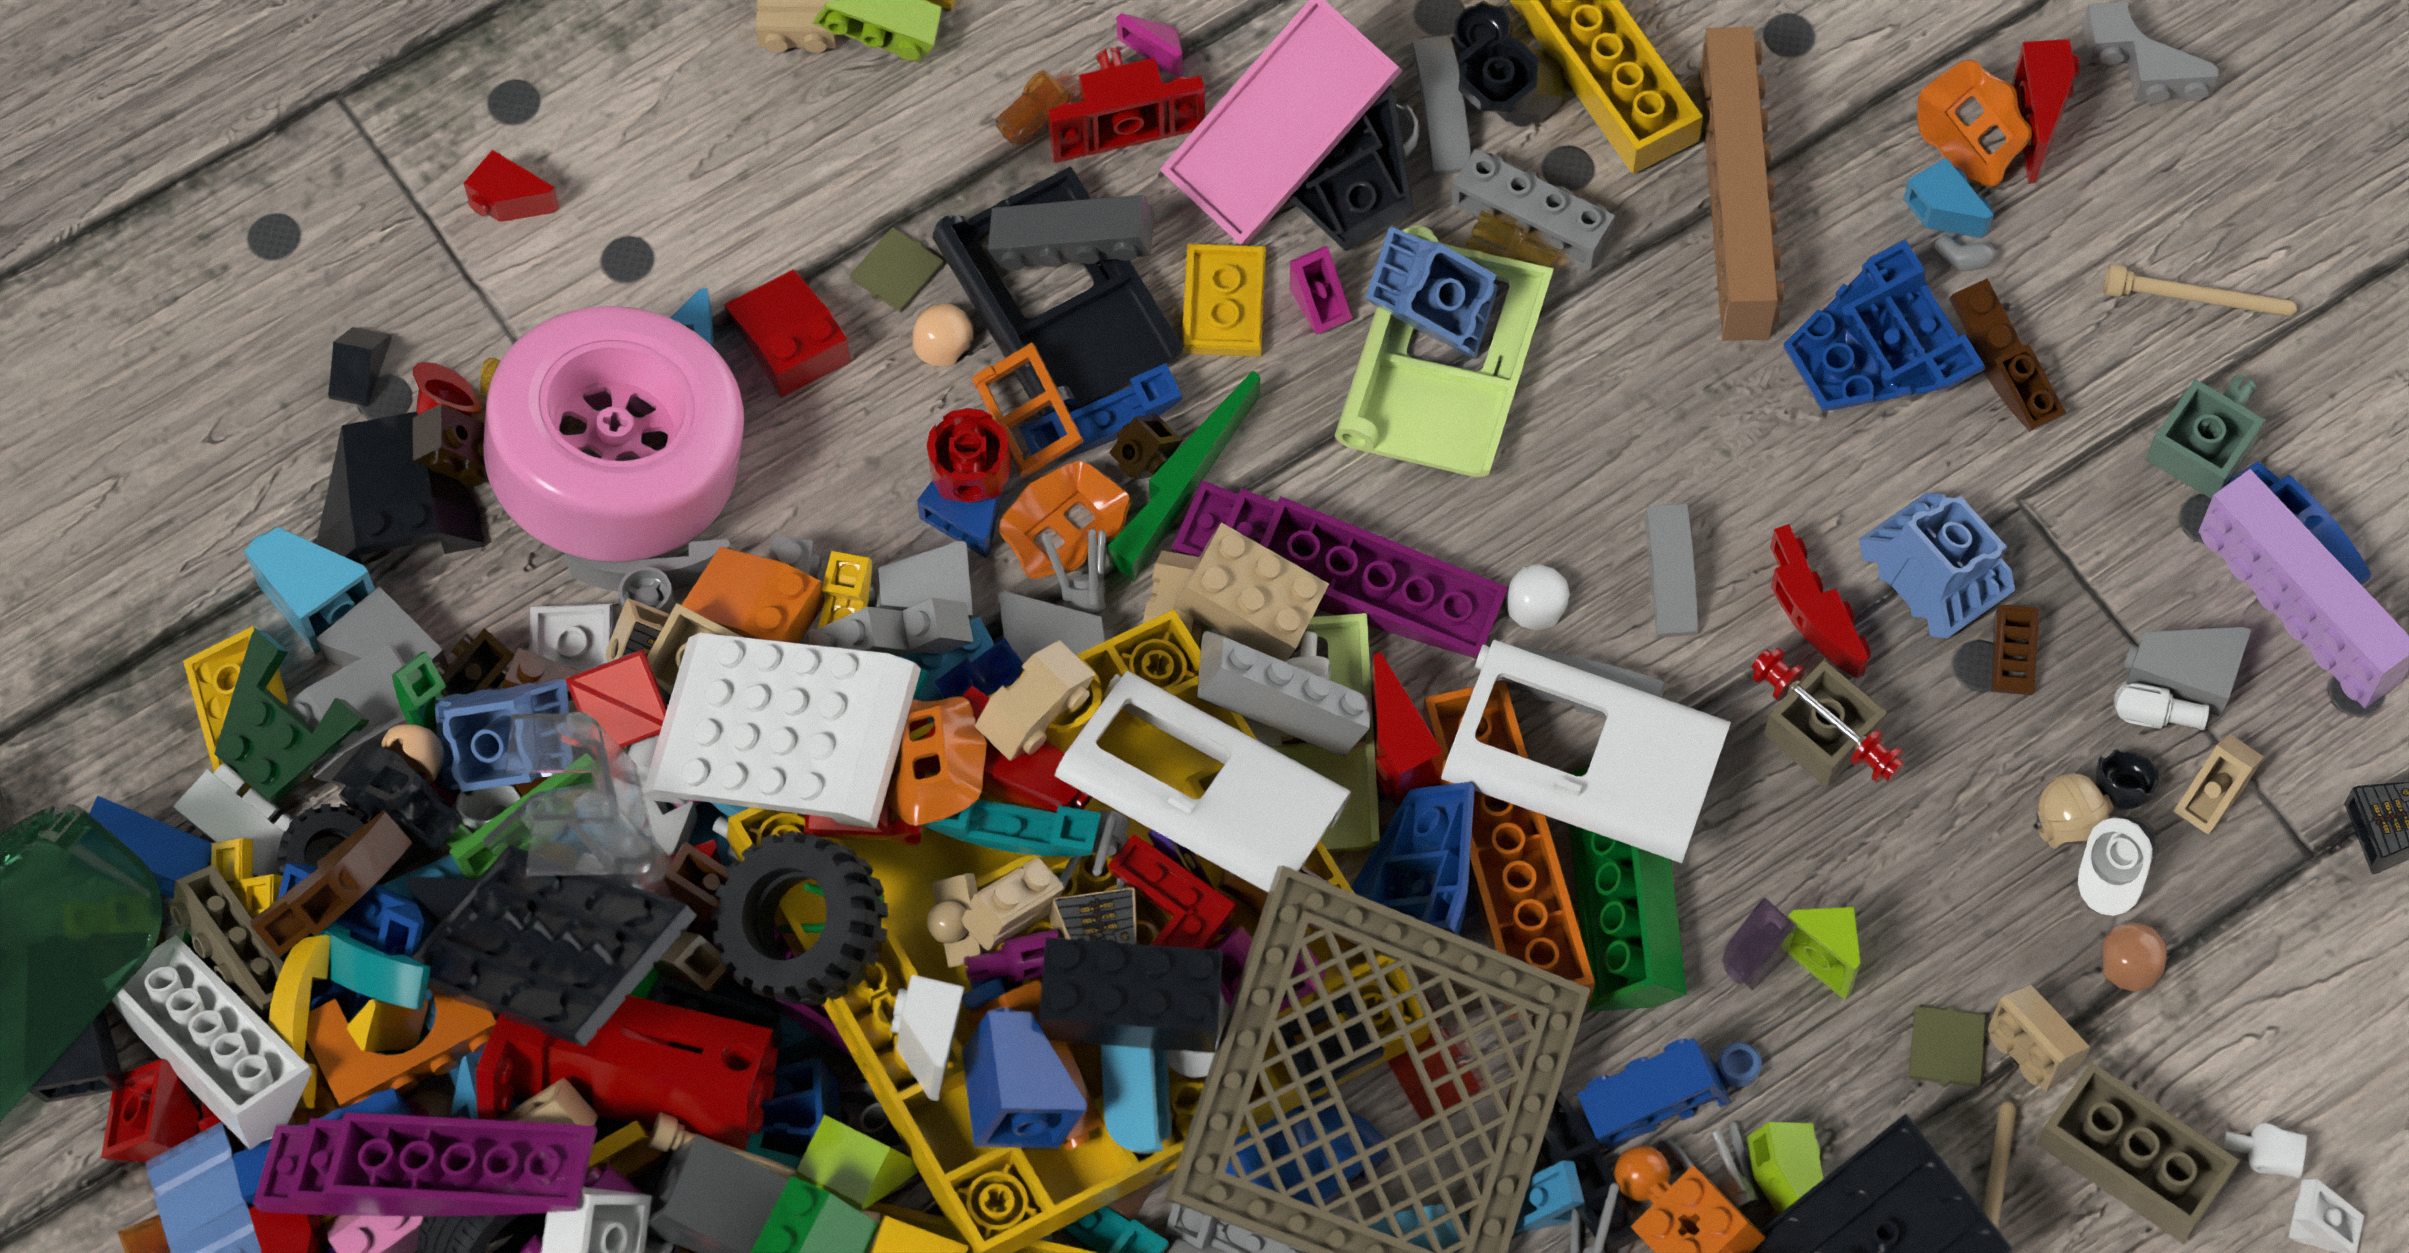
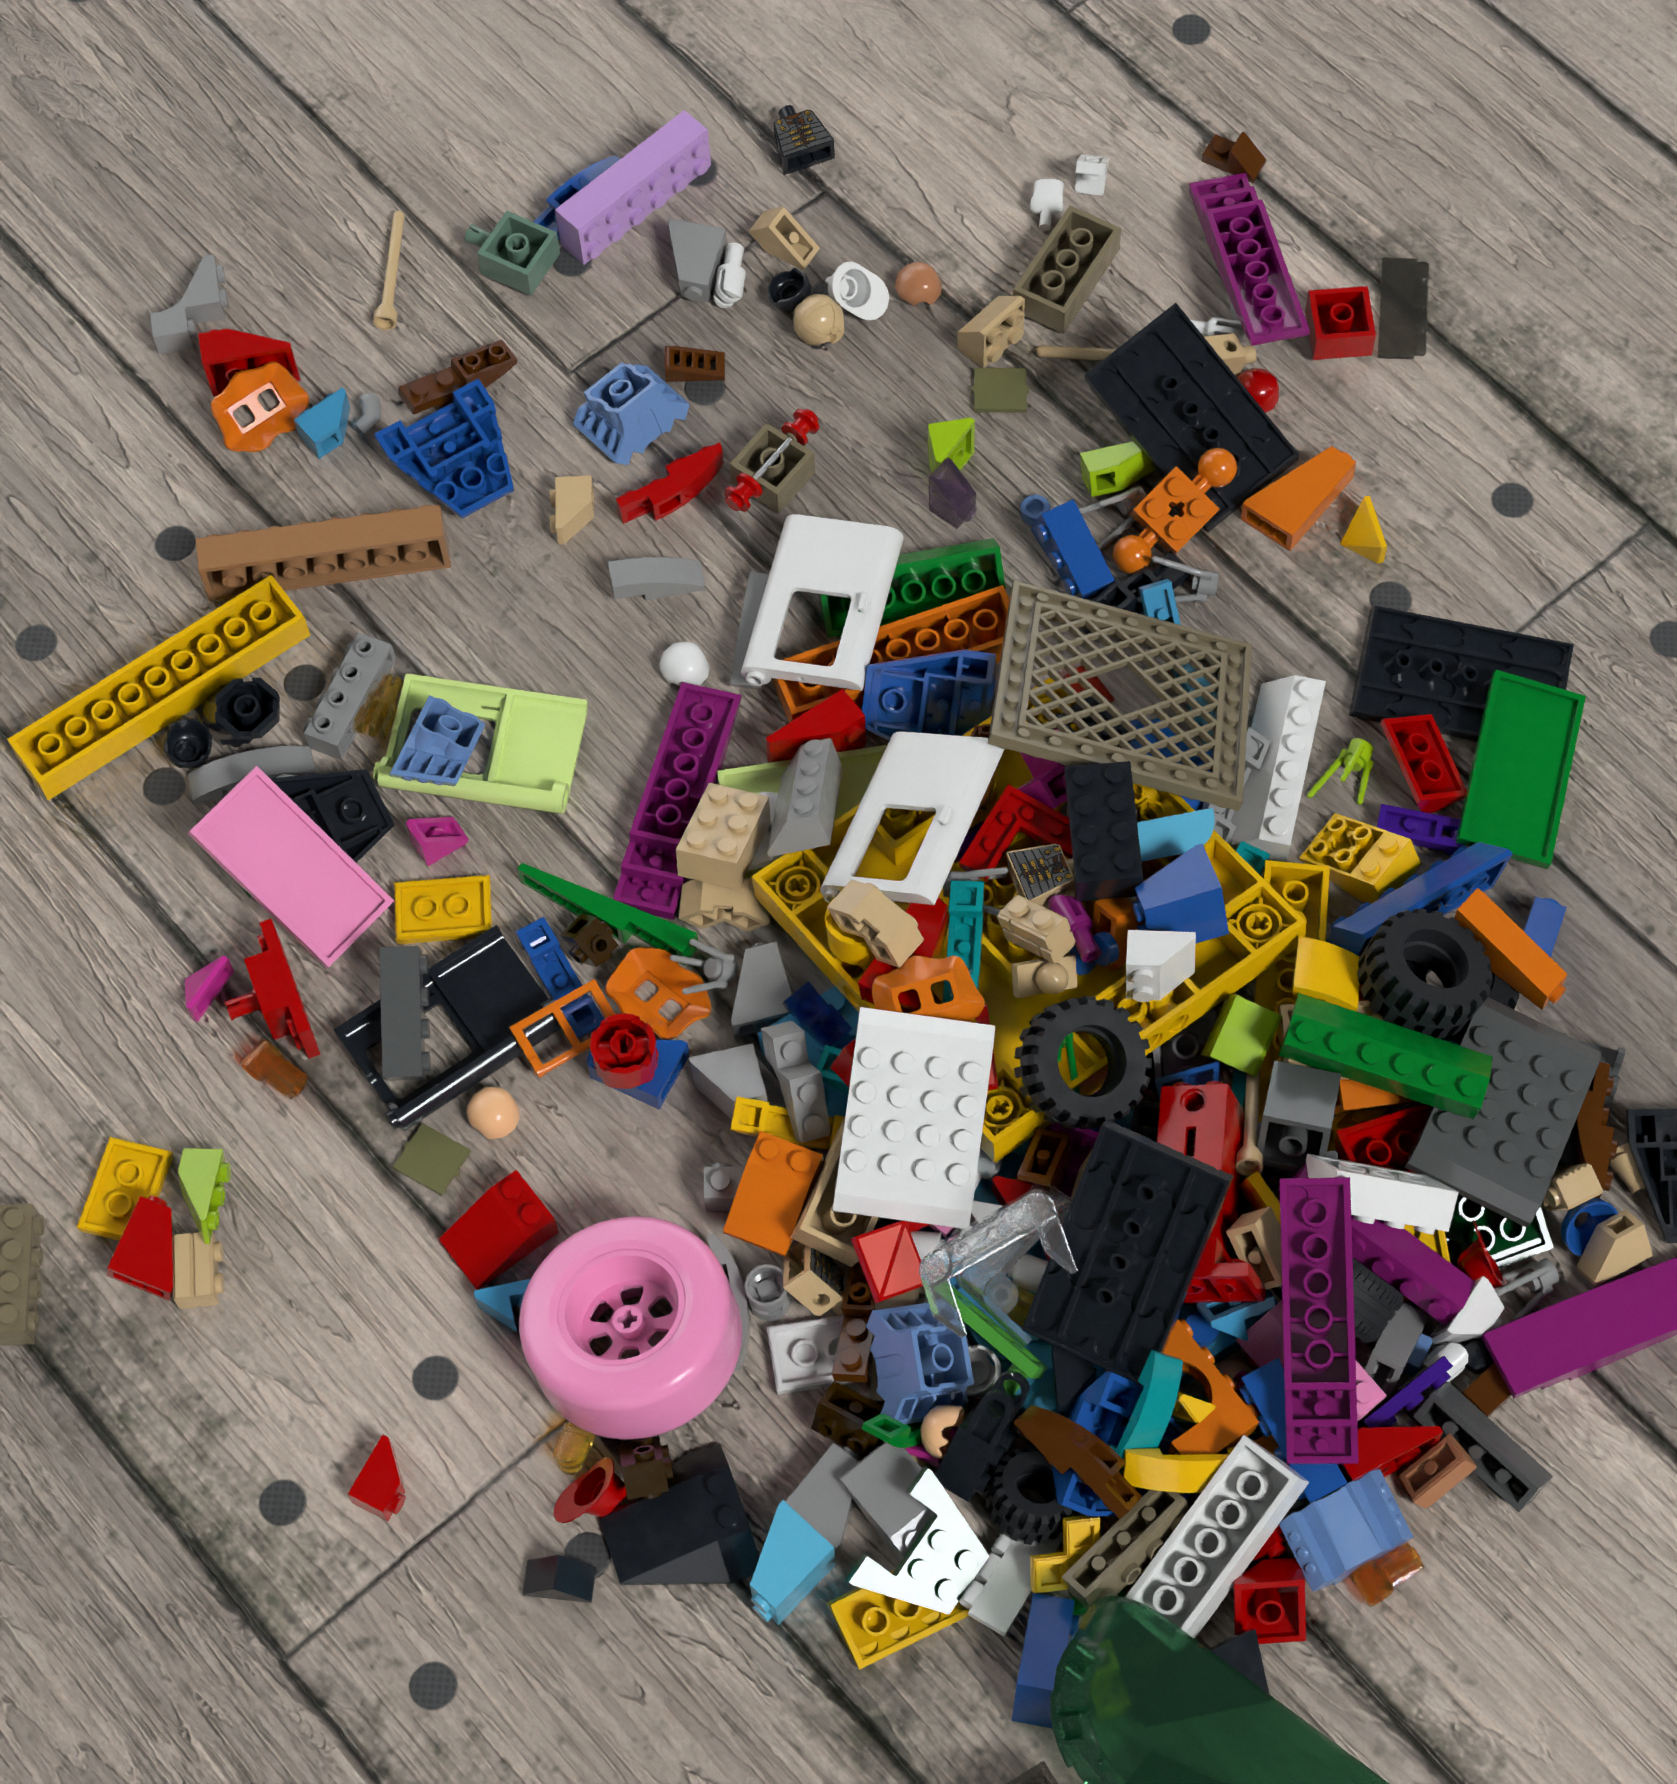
camera: 95 degrees left, 0 degrees up
(1791, 479) = (573, 505): none -> tan slope

